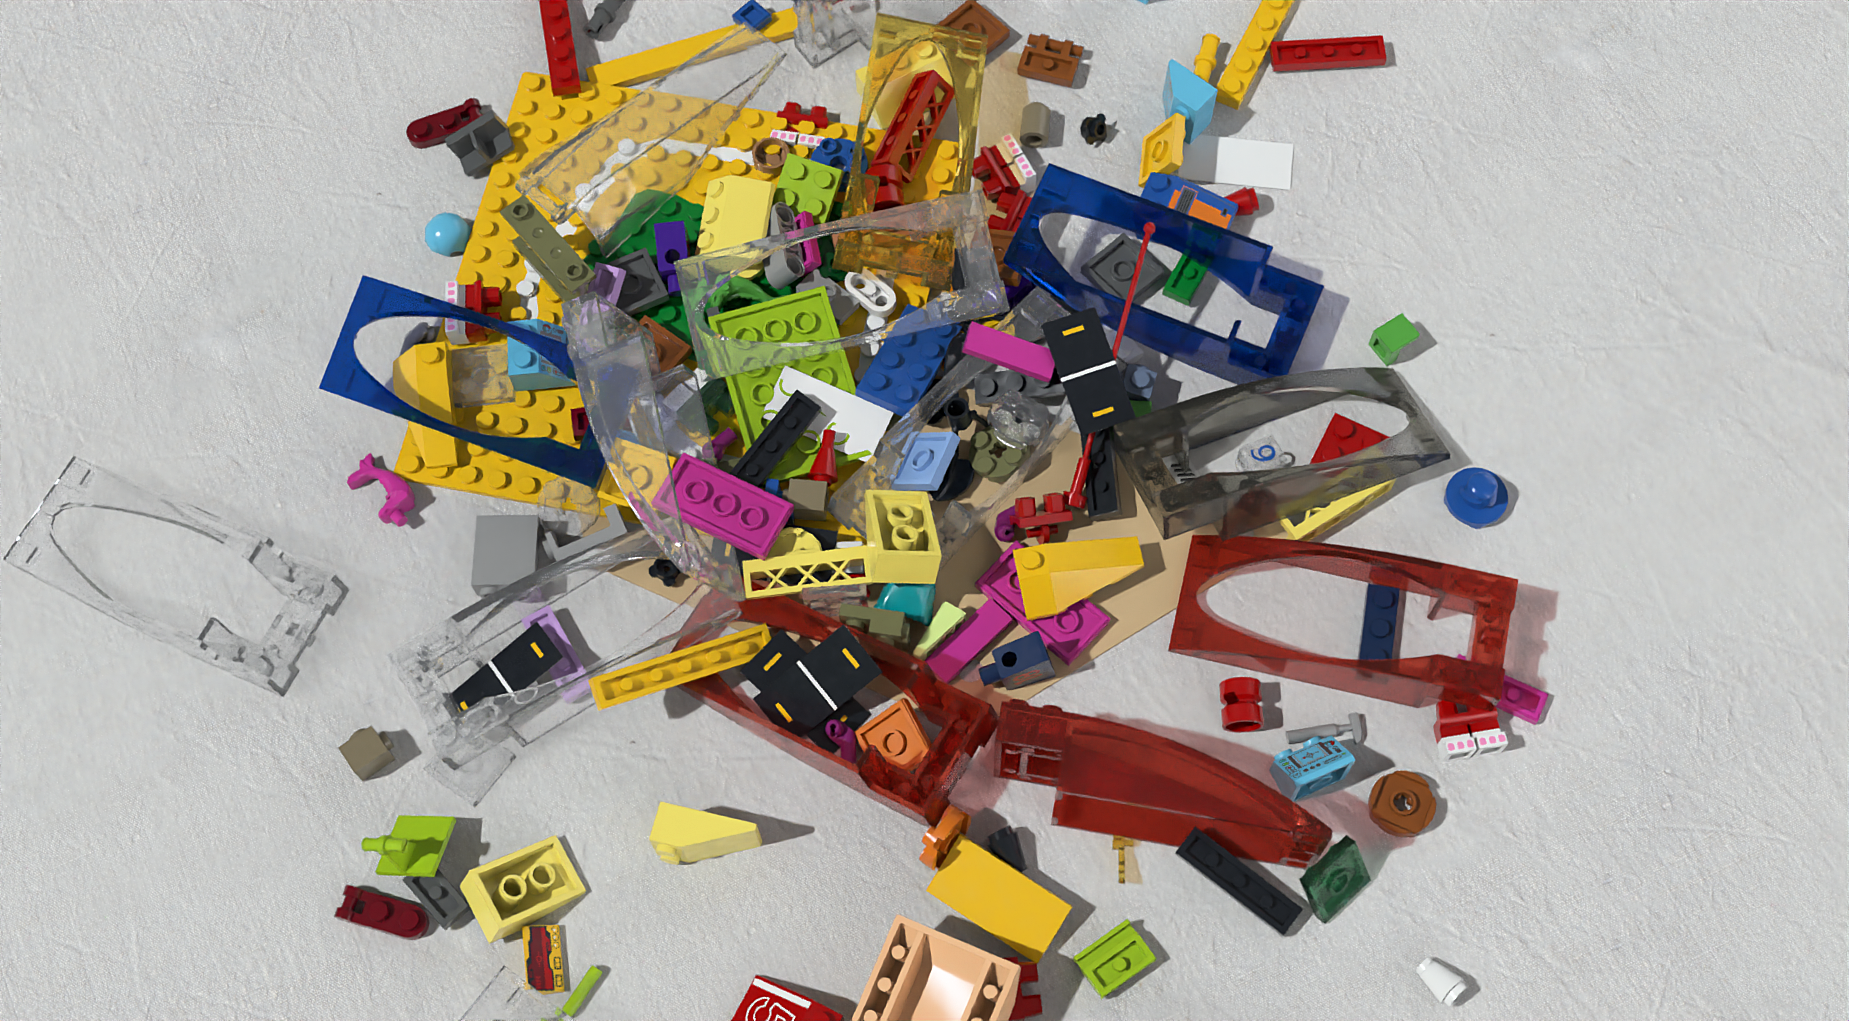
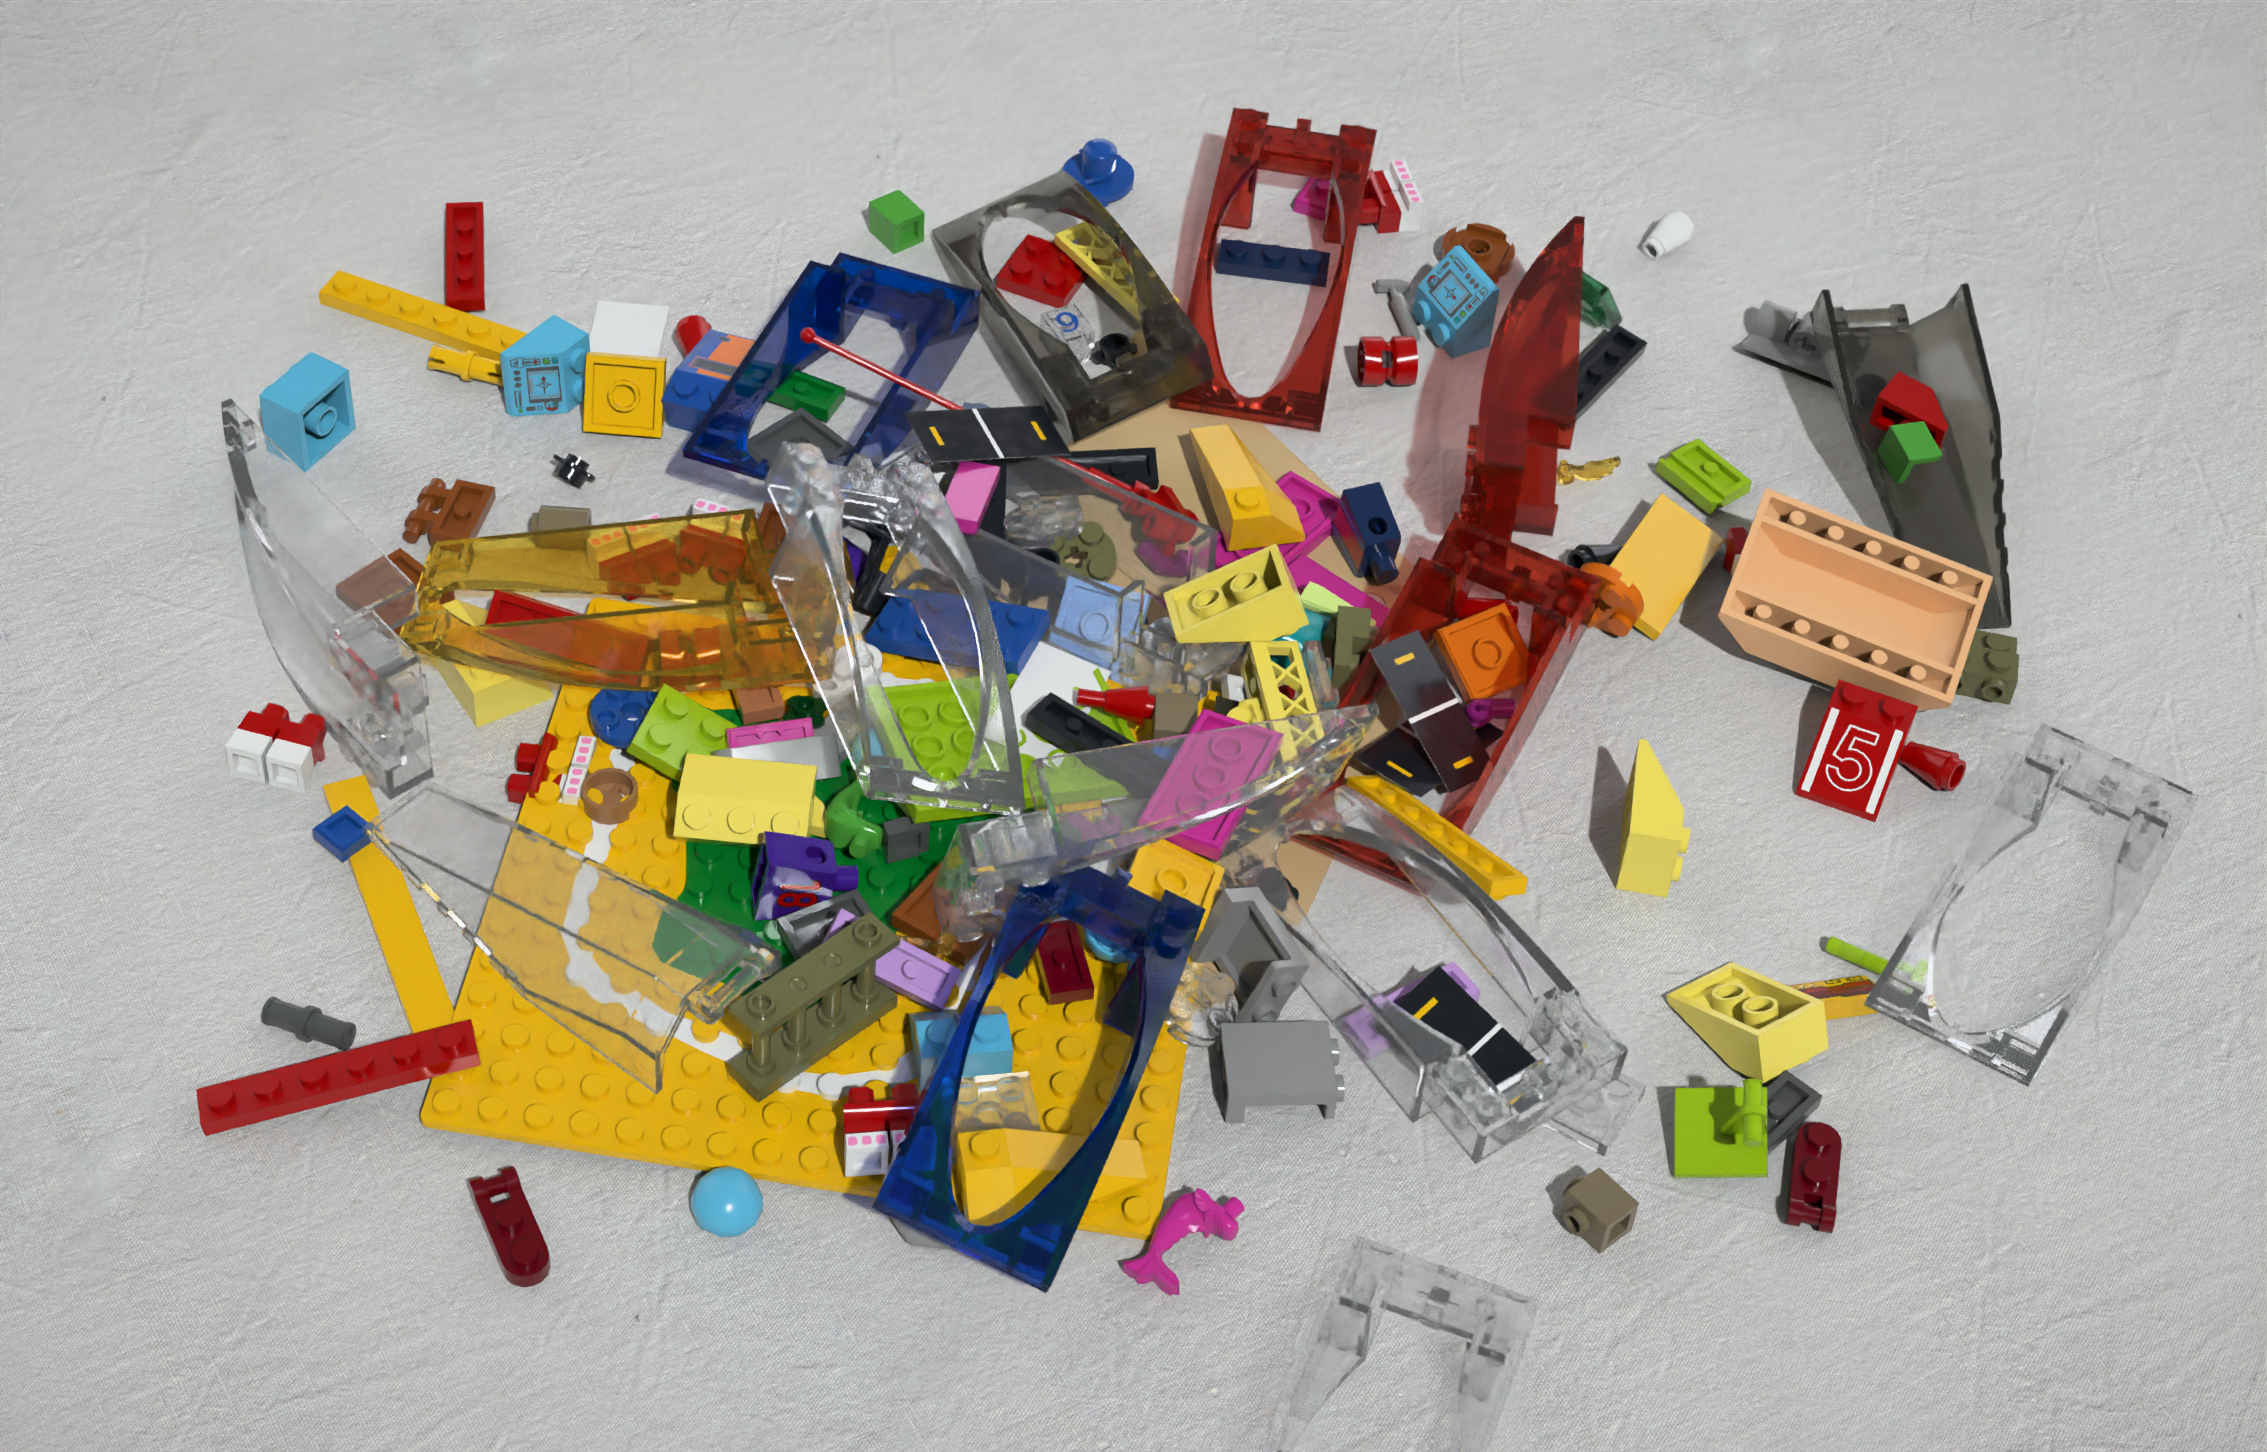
camera: 100 degrees left, 20 degrees down
(481, 142) = (570, 1155): dark grey panel -> none

